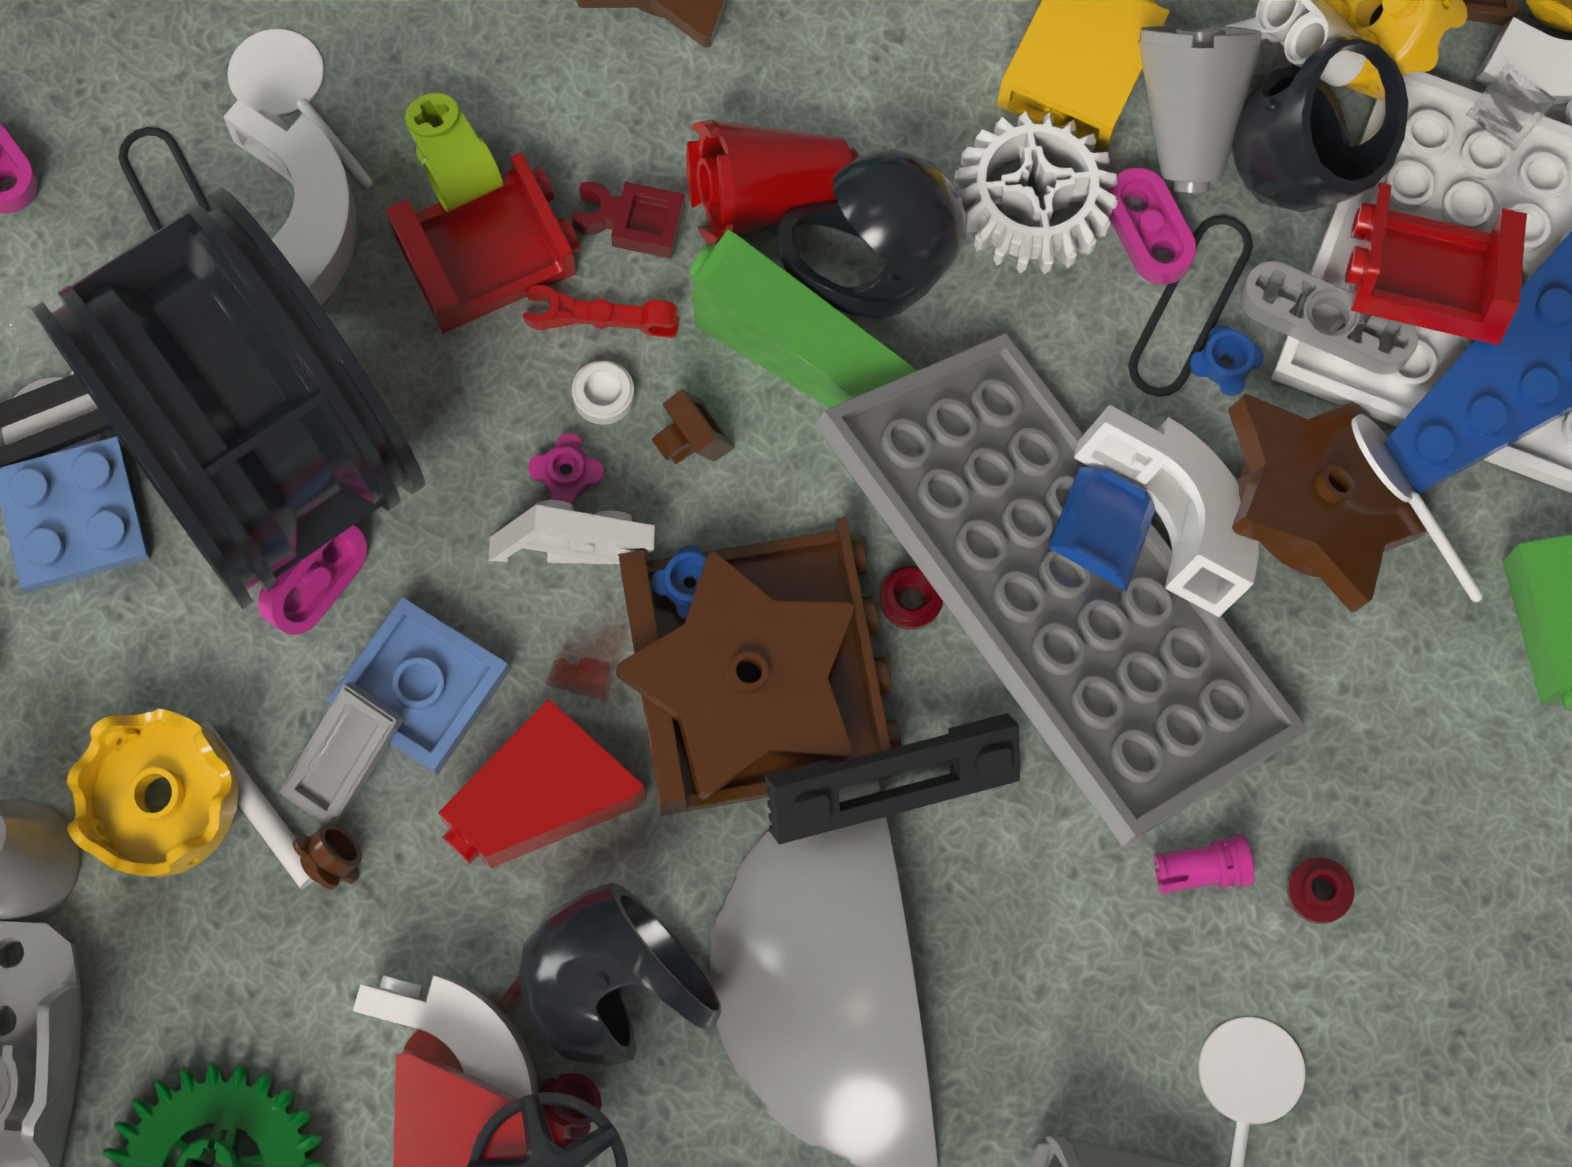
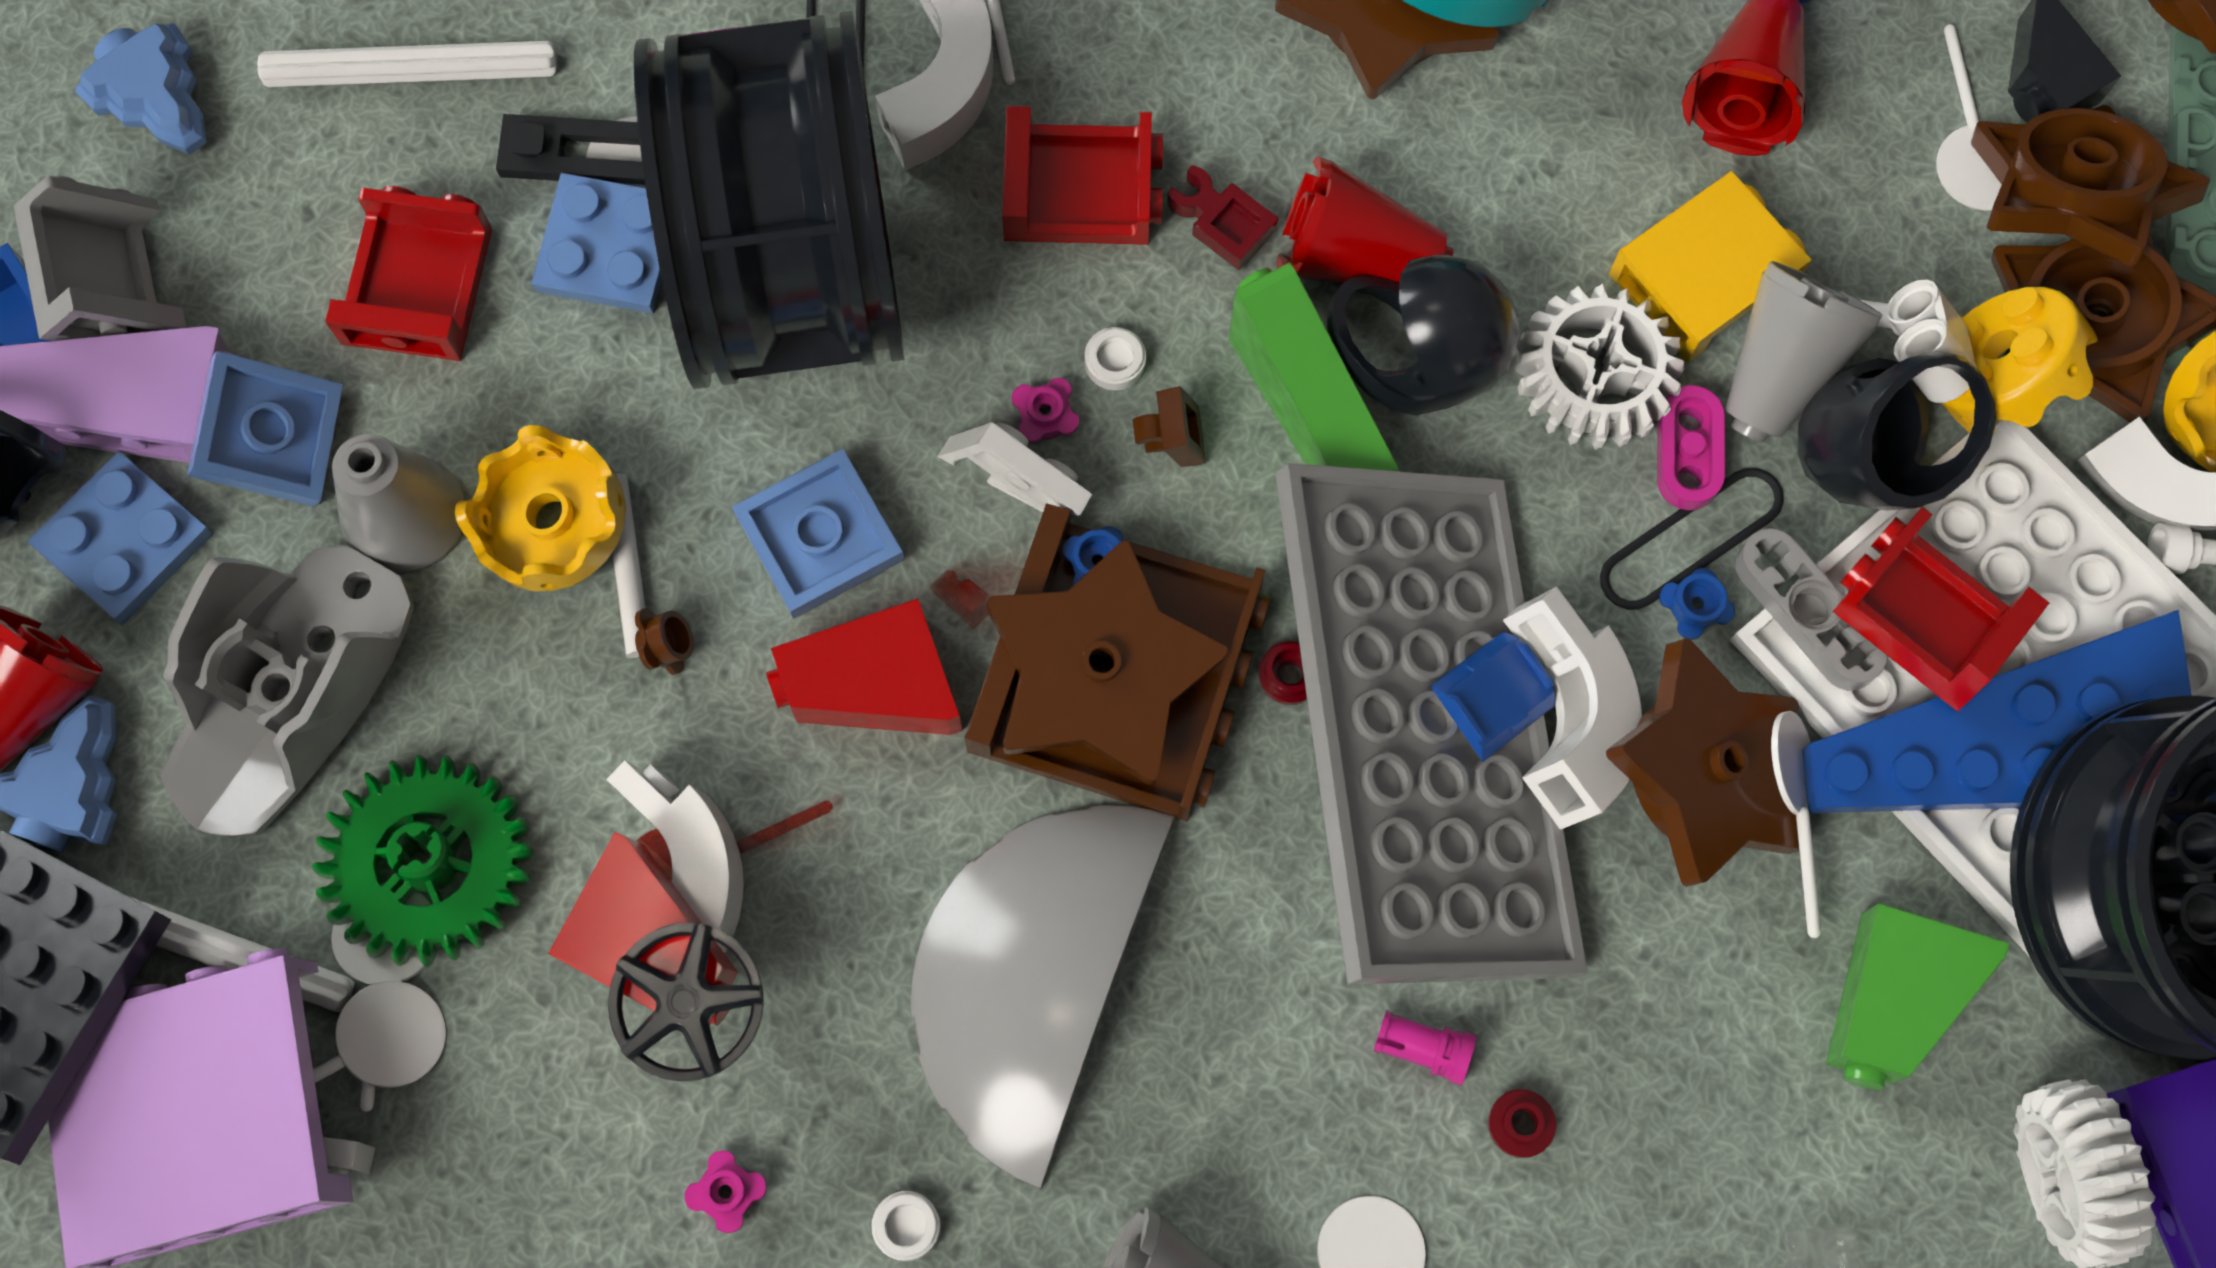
camera: 30 degrees right, 0 degrees up
(313, 584) = (777, 400): dark pink plate -> none
(341, 754) = (719, 558): light grey tile -> none
(450, 151) = (1091, 83): lime piece -> none
(578, 1086) = (764, 952): dark red plate -> none
(585, 957) = (825, 842): black piece -> none
(653, 319) = (1192, 314): red piece -> none
(807, 796) = (1093, 799): black container -> none
(1510, 106) = (2093, 499): clear tile -> none

